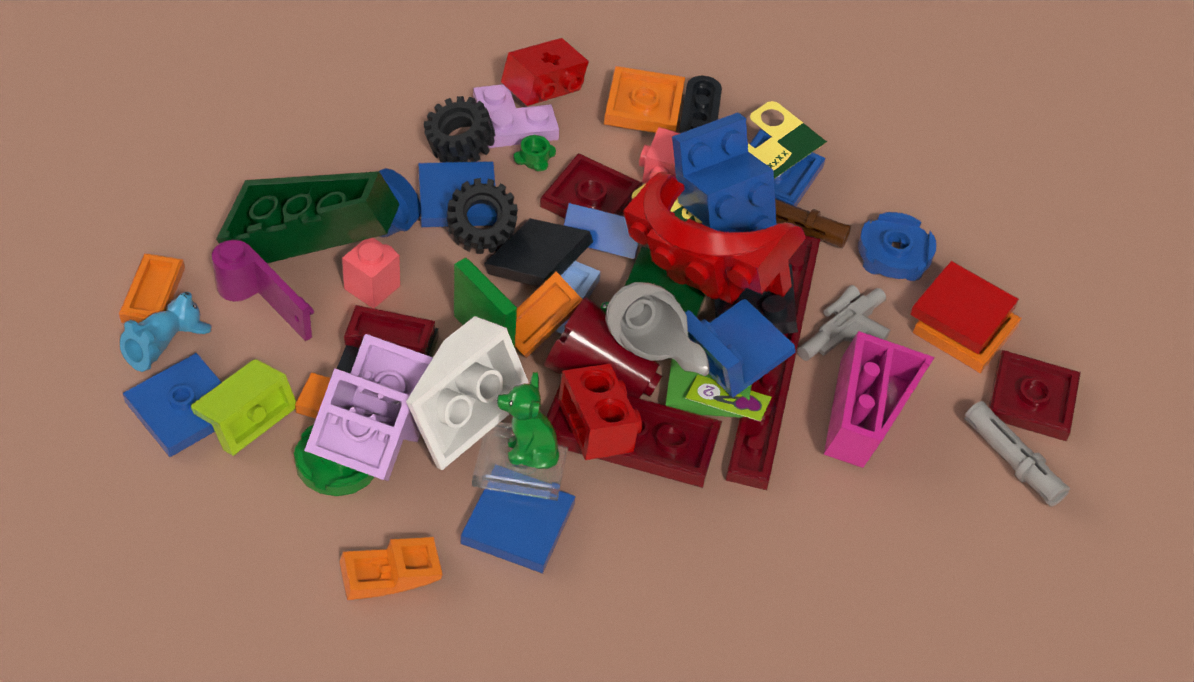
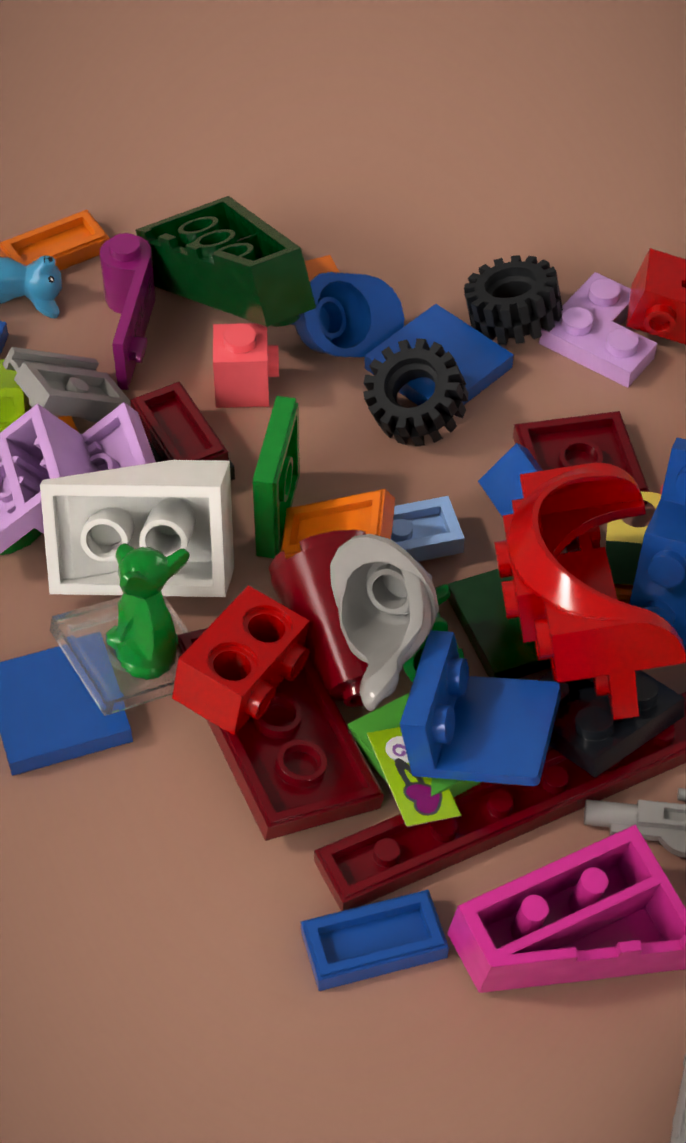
camera: 55 degrees right, 0 degrees up
(302, 357) = (65, 383): none -> light grey plate
(535, 152) = (573, 378): green plate -> none
(538, 252) = (430, 471): black tile -> none
(797, 487) = (374, 940): none -> blue tile

